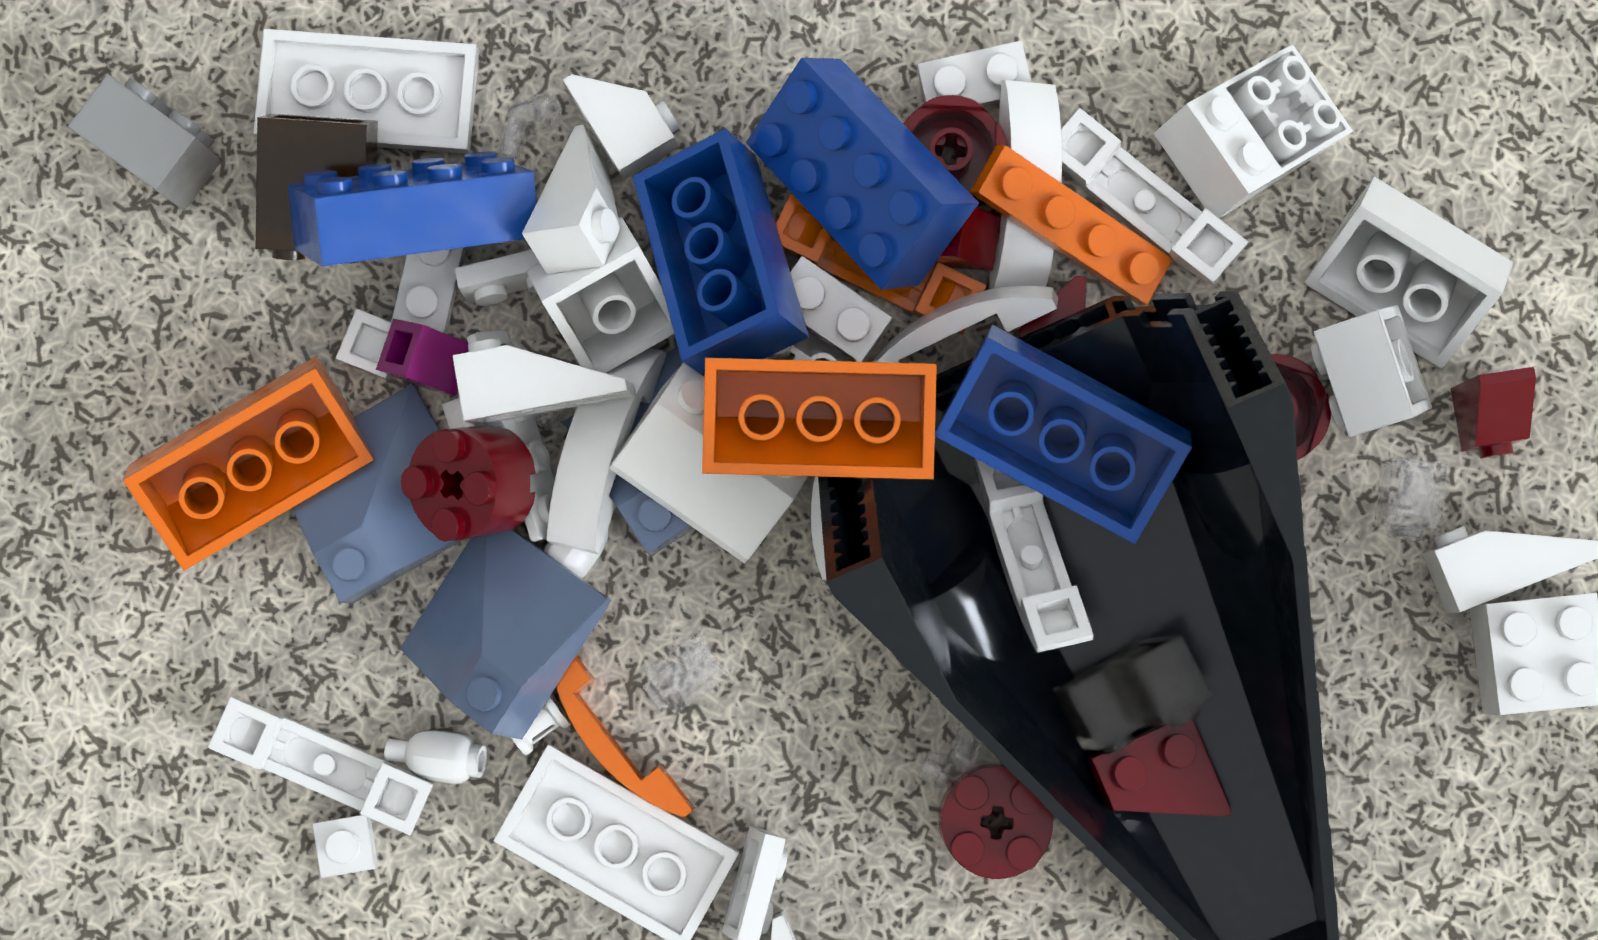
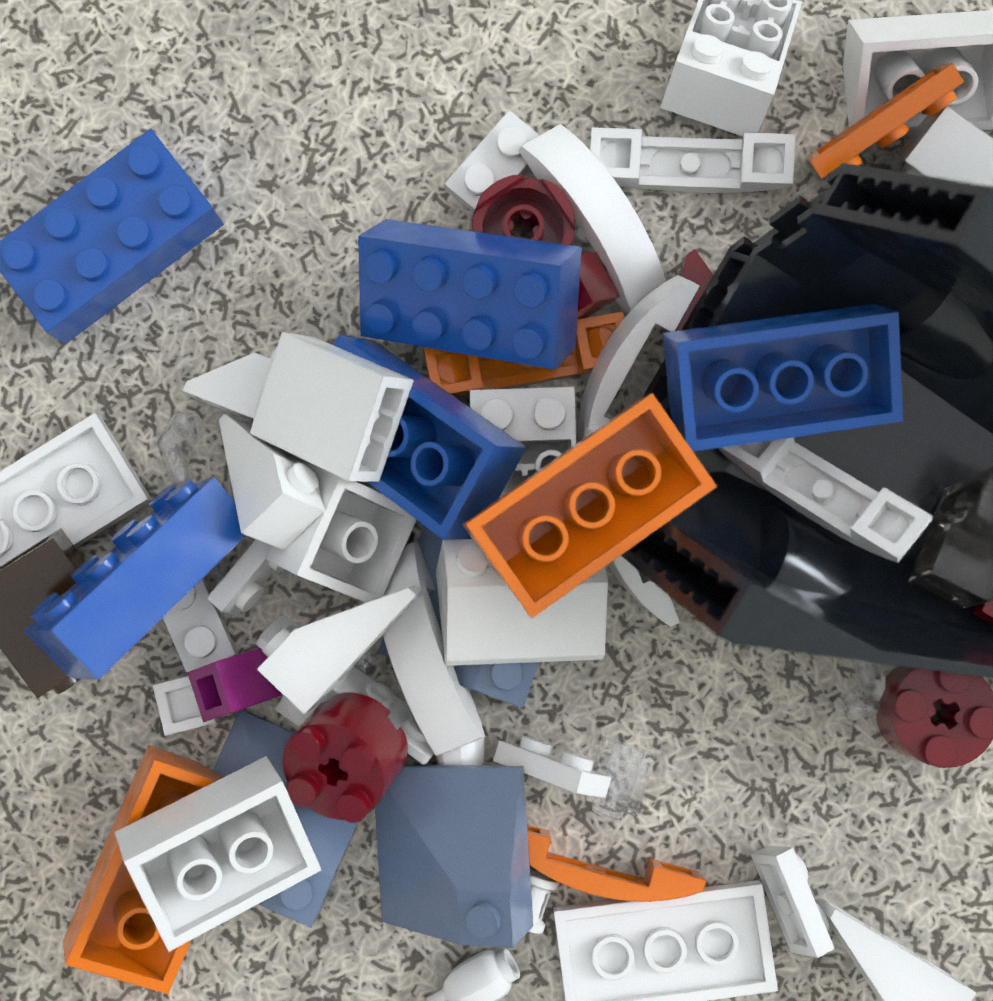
camera: 45 degrees left, 0 degrees up
(312, 481) = (217, 852): none -> white slope
(645, 633) = (569, 772): none -> white plate
(672, 184) = (330, 407): none -> white brick
(1071, 224) = (652, 217): orange plate -> none
(1325, 288) = (888, 121): none -> orange plate

